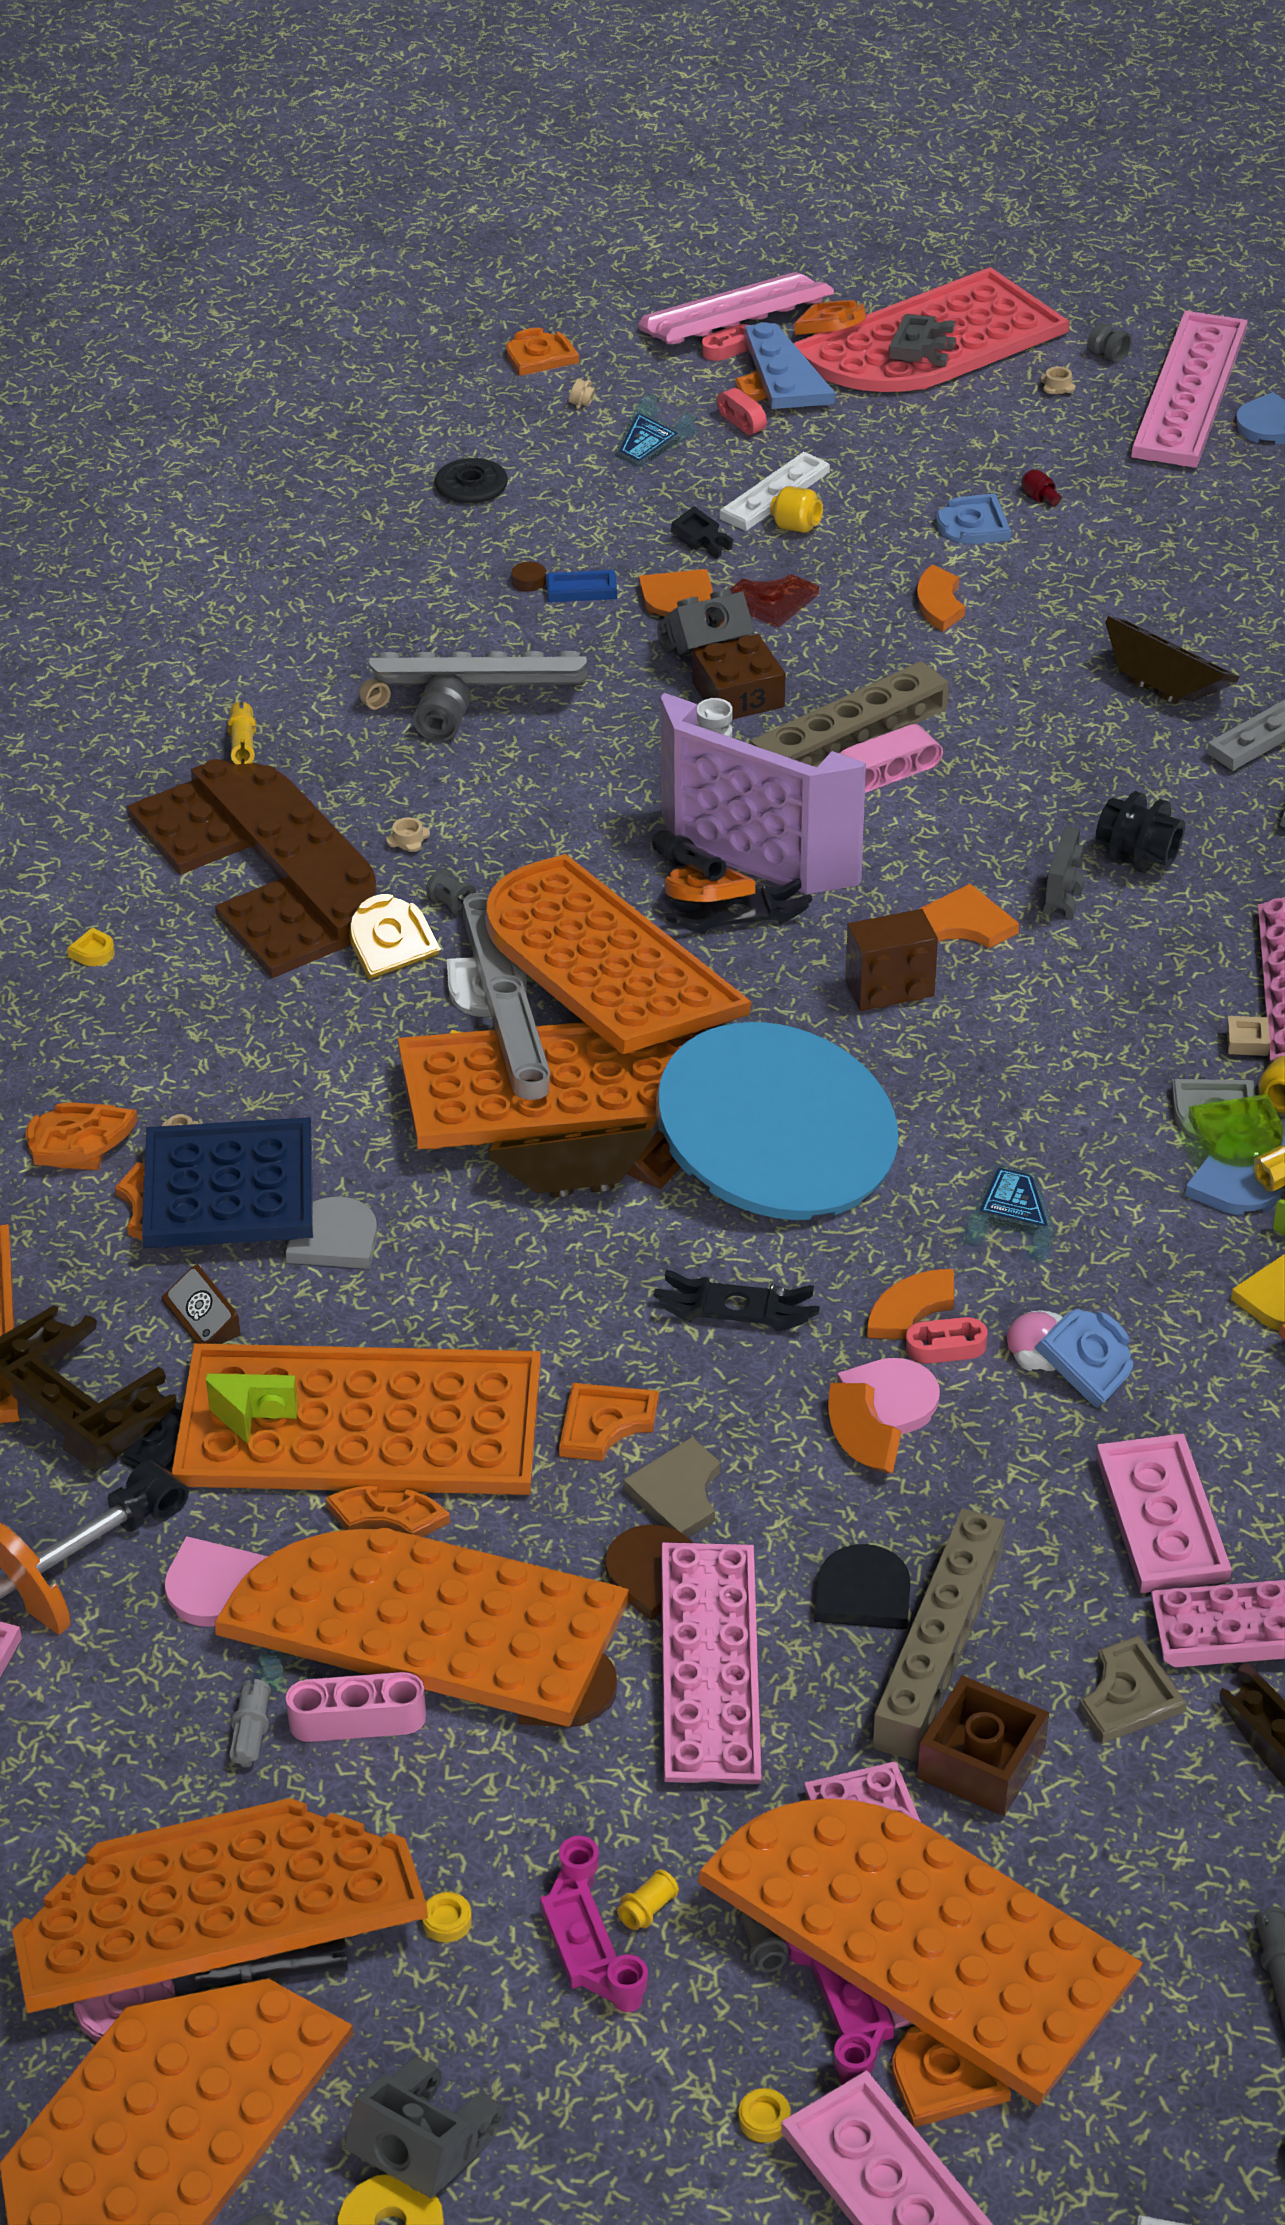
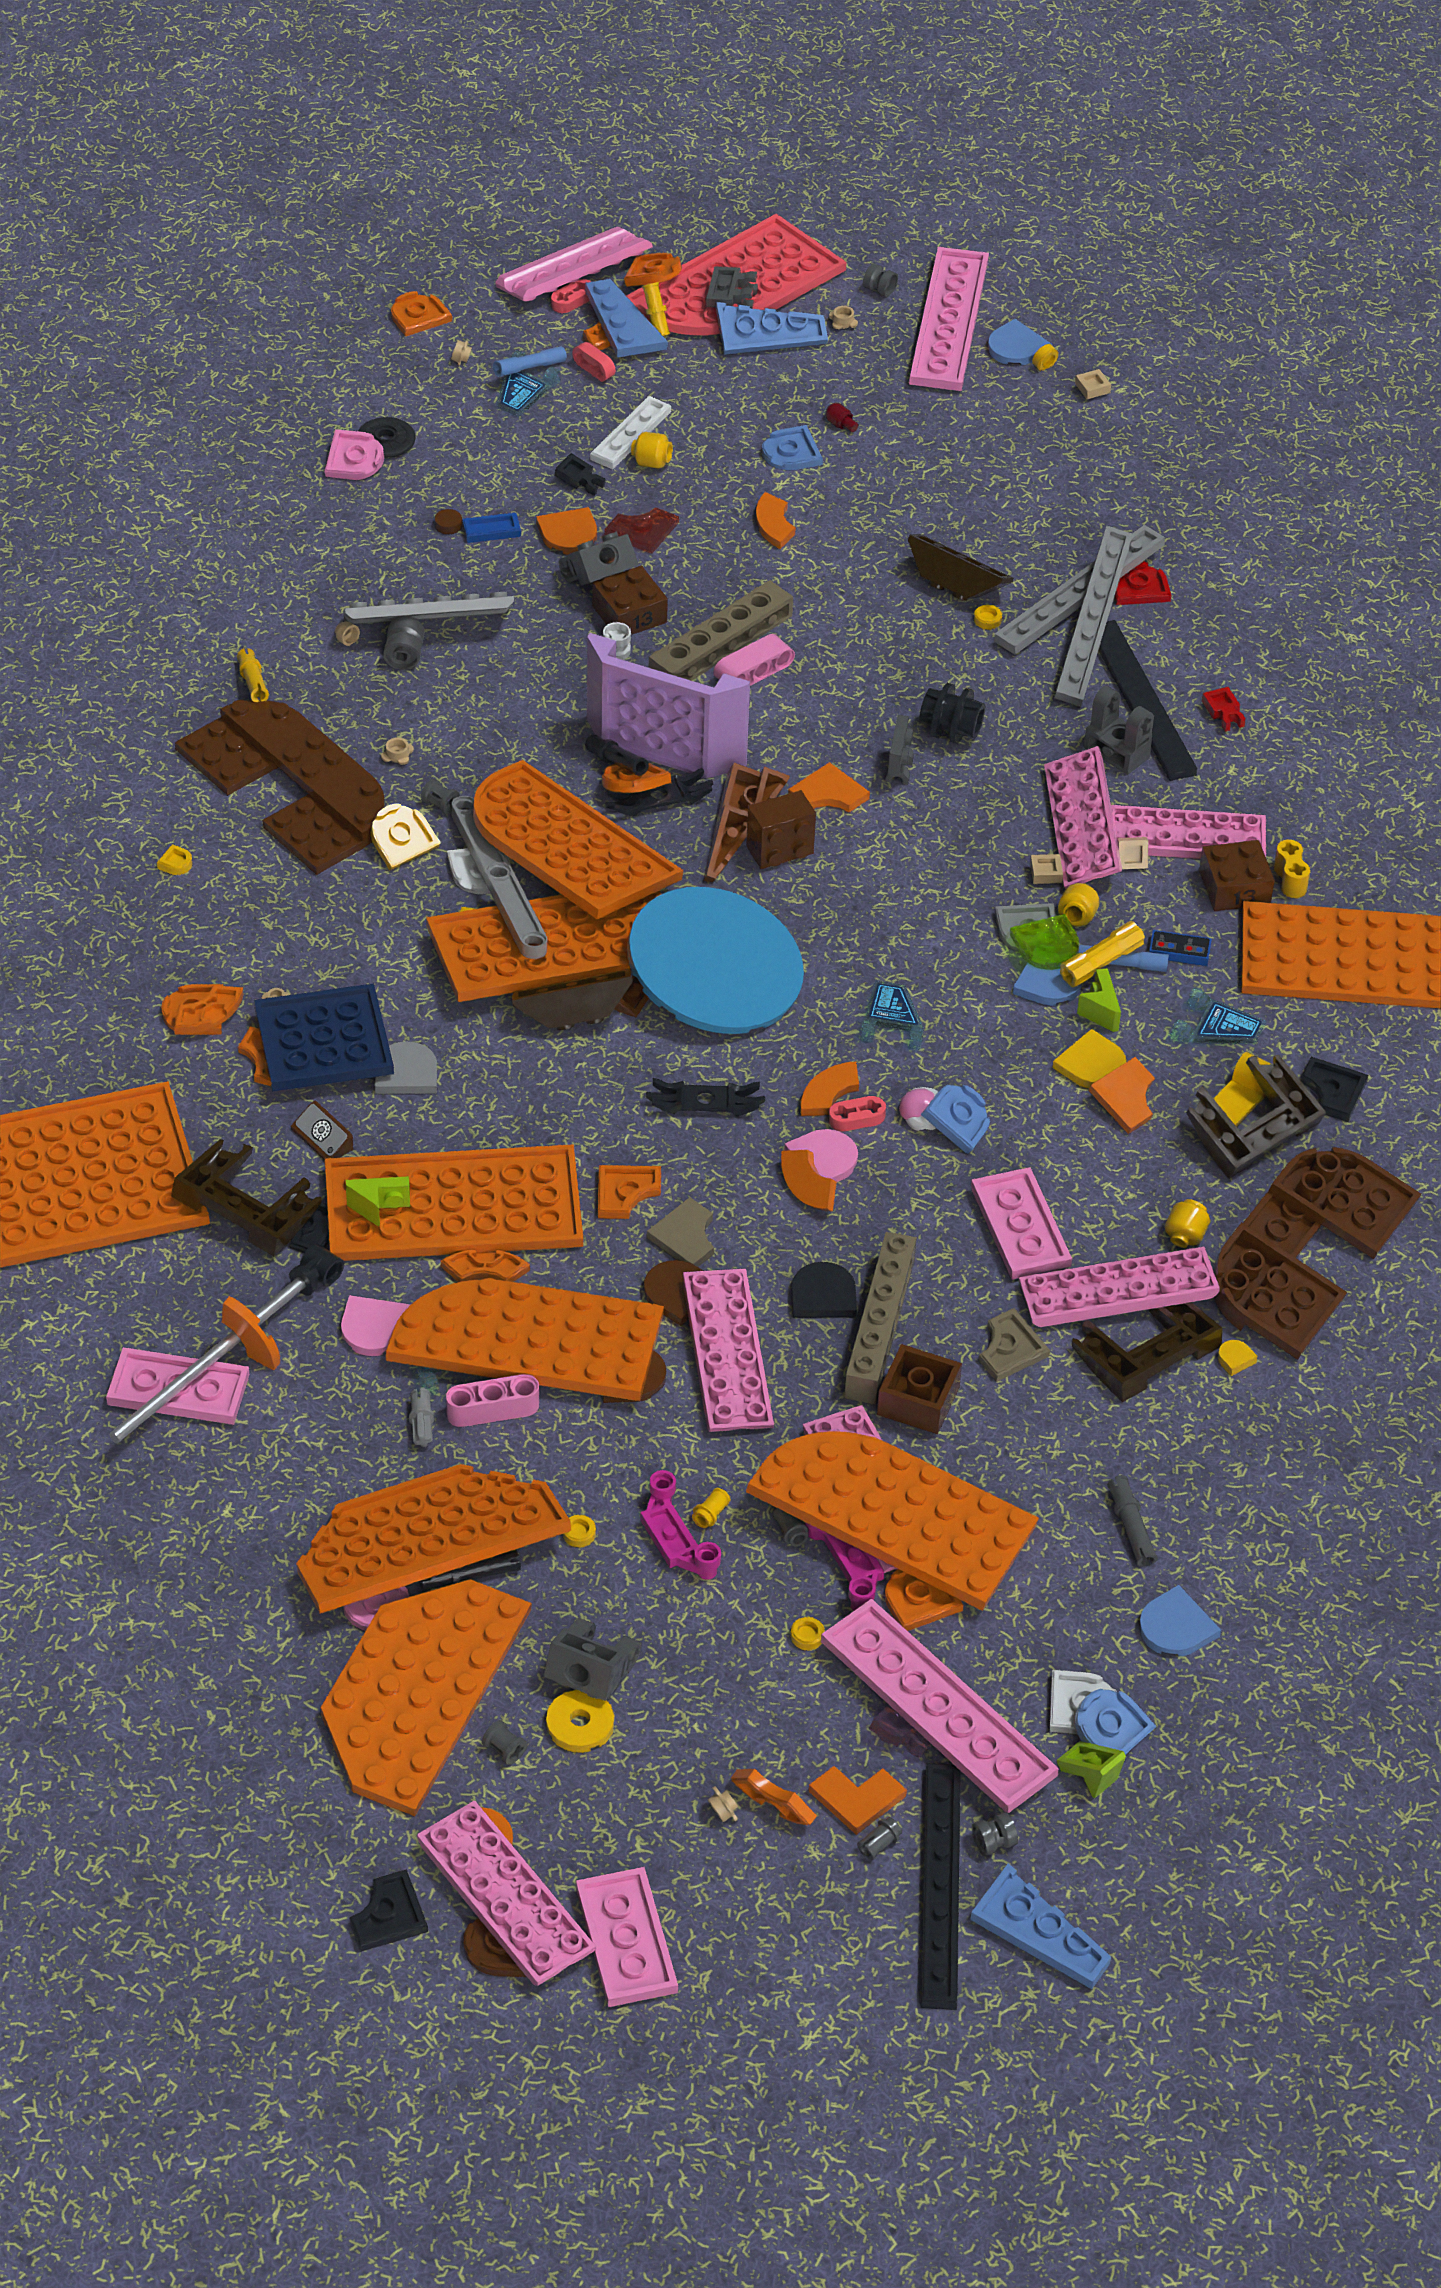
camera: 10 degrees left, 5 degrees up
(426, 497) = (354, 455): none -> bright pink tile
(645, 407) = (516, 364): none -> medium blue piece
(825, 356) = (656, 309): none -> yellow pin
(826, 957) = (741, 788): none -> dark orange wedge
(951, 387) = (761, 330): none -> medium blue wing
(1202, 724) = (988, 617): none -> yellow tile

